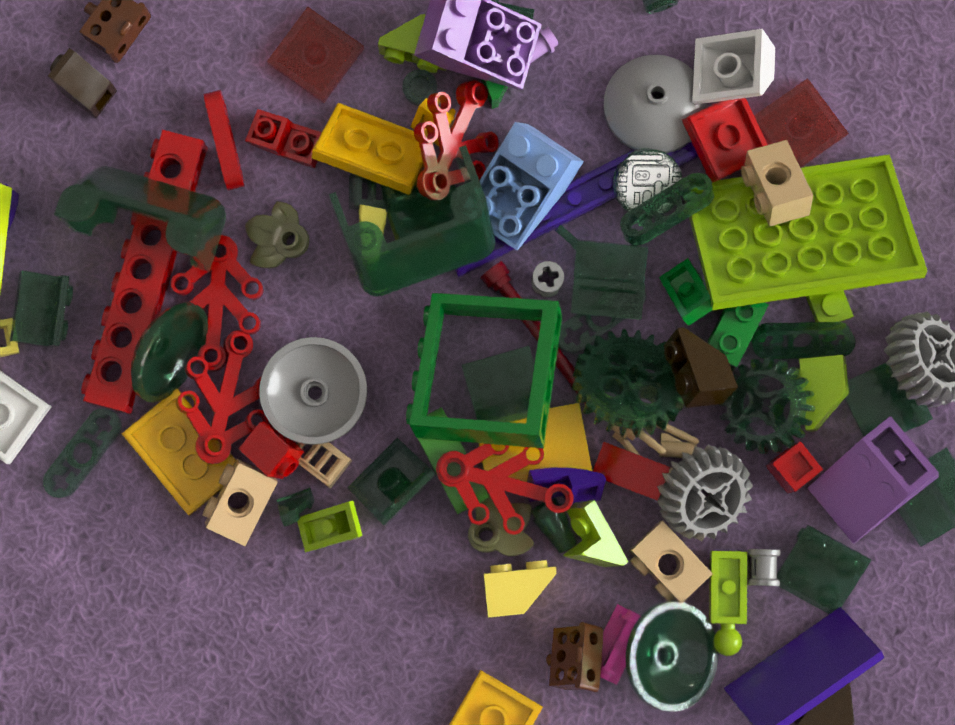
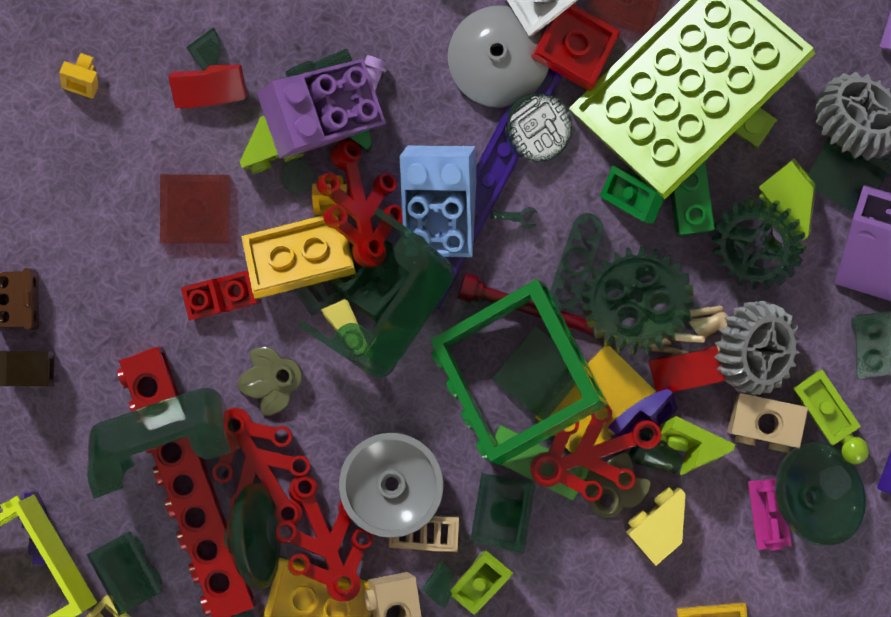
camera: 30 degrees left, 5 degrees up
(224, 140) = (172, 332): red beam -> none
(271, 451) = (392, 556): red brick -> none
(553, 270) = (523, 262): light grey bush -> none
(576, 657) = (744, 549): reddish brown piece -> none
(609, 279) = (562, 228): clear green slope -> none
(665, 222) = (589, 120): clear green beam -> none
(699, 370) = (686, 253): dark brown slope -> none
(764, 567) = (843, 372): light grey bush -> none
(773, 166) = (634, 41): tan brick -> none
(792, 330) = (764, 169): clear green beam -> none
(794, 467) = (814, 277): red brick -> none

